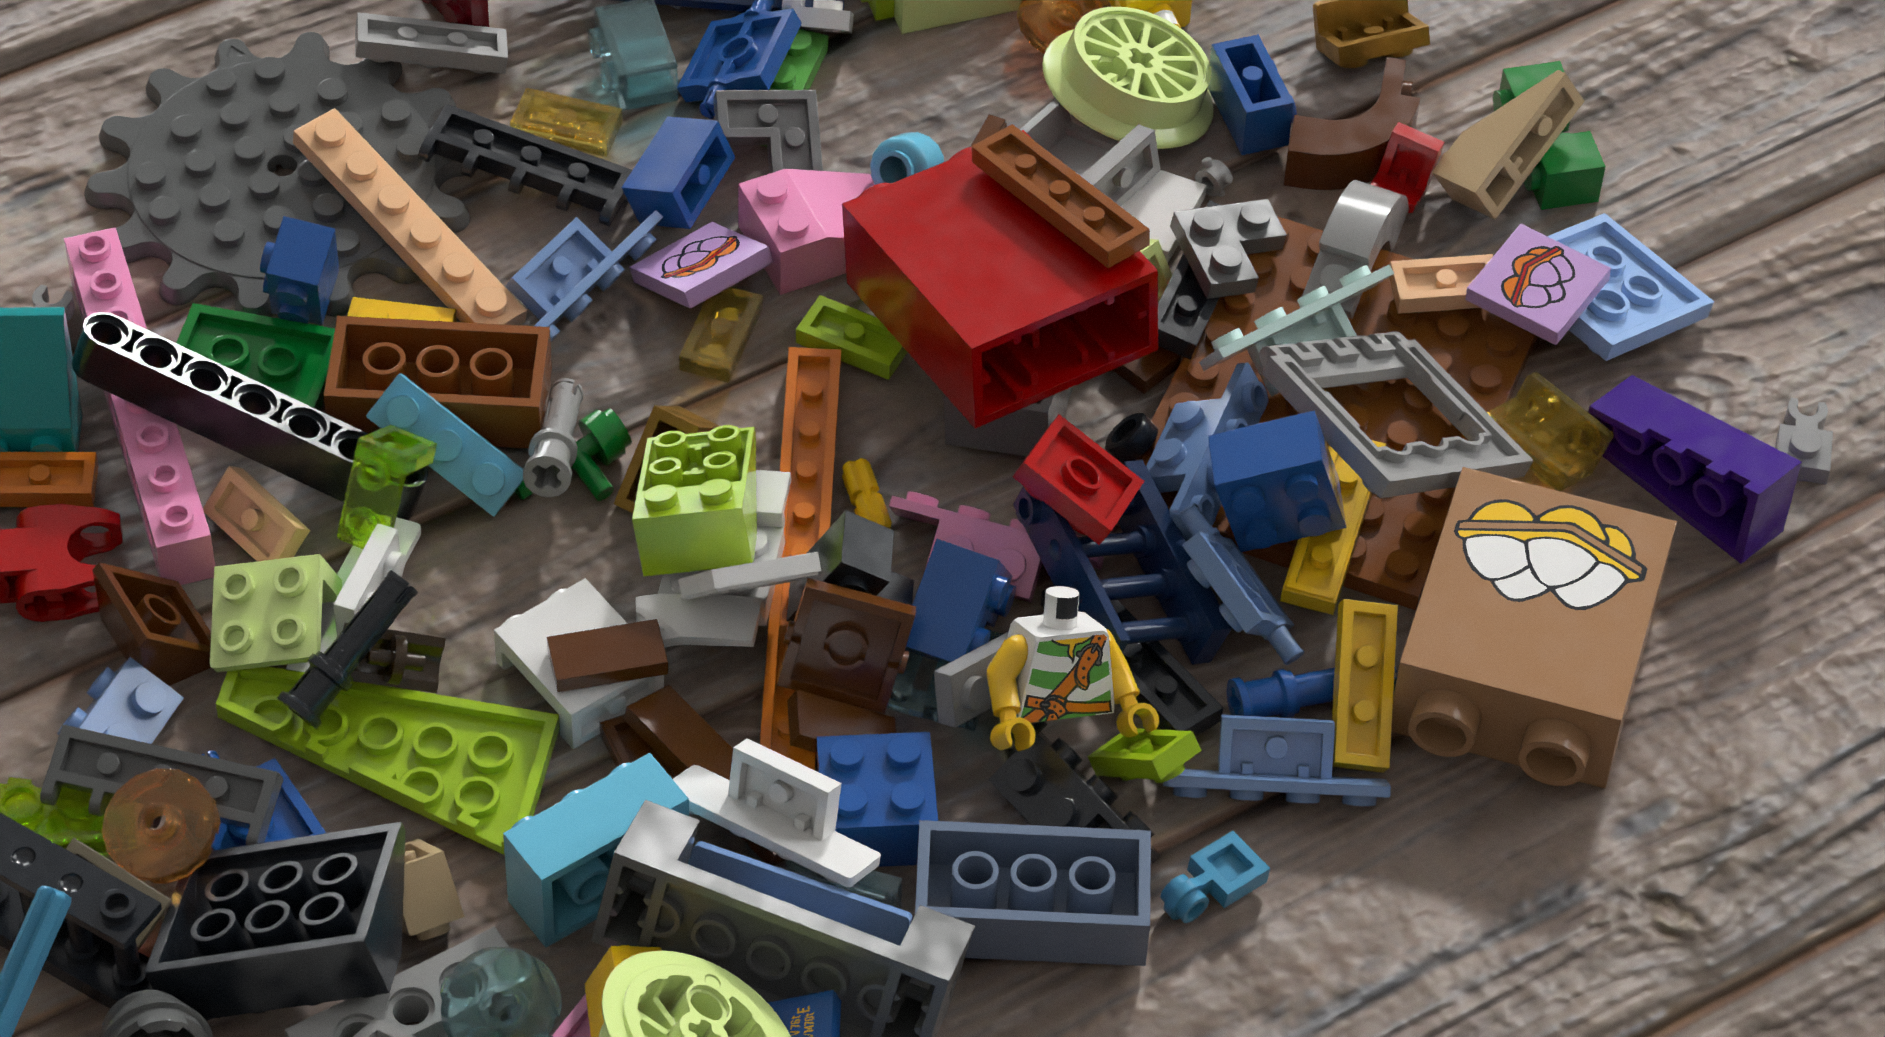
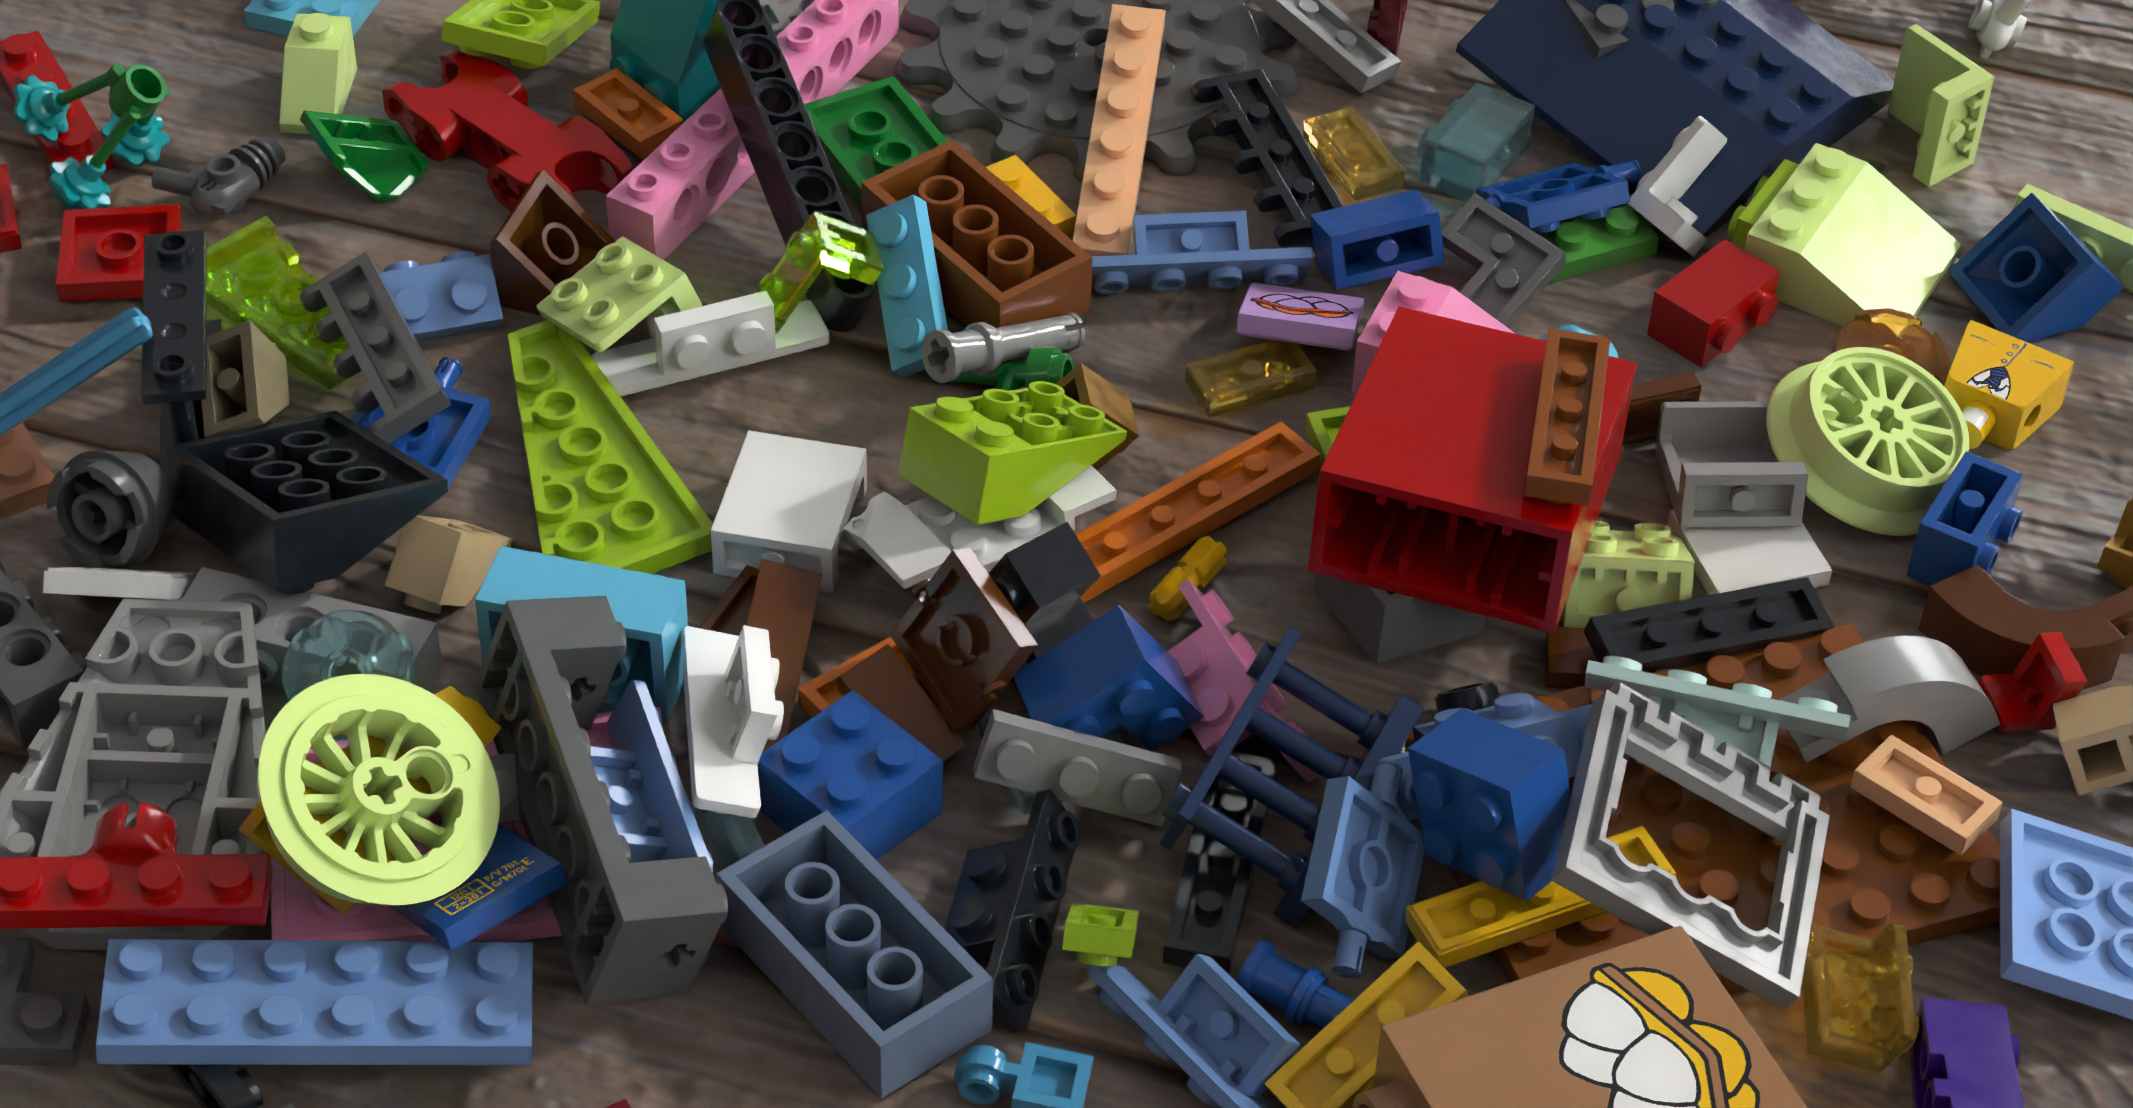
camera: 50 degrees right, 5 degrees down
(175, 847) = (327, 367): clear orange plate -> none
(254, 517) = (722, 243): light nougat plate -> none
(300, 270) = (972, 94): blue brick -> none
(332, 670) = (586, 358): black pin -> none
(403, 661) = (654, 393): dark brown hips -> none
(607, 655) = (790, 507): reddish brown tile -> none
(749, 576) = (941, 518): white tile -> none
(923, 57) = (1713, 303): none -> red brick
(1060, 670) = (1094, 792): torso -> none
(1078, 479) = (1314, 661): red plate -> none
(1215, 176) = (1850, 570): light grey piece -> none
(1220, 239) = (1761, 601): plate -> none
(1538, 284) = (2003, 853): lavender tile -> none

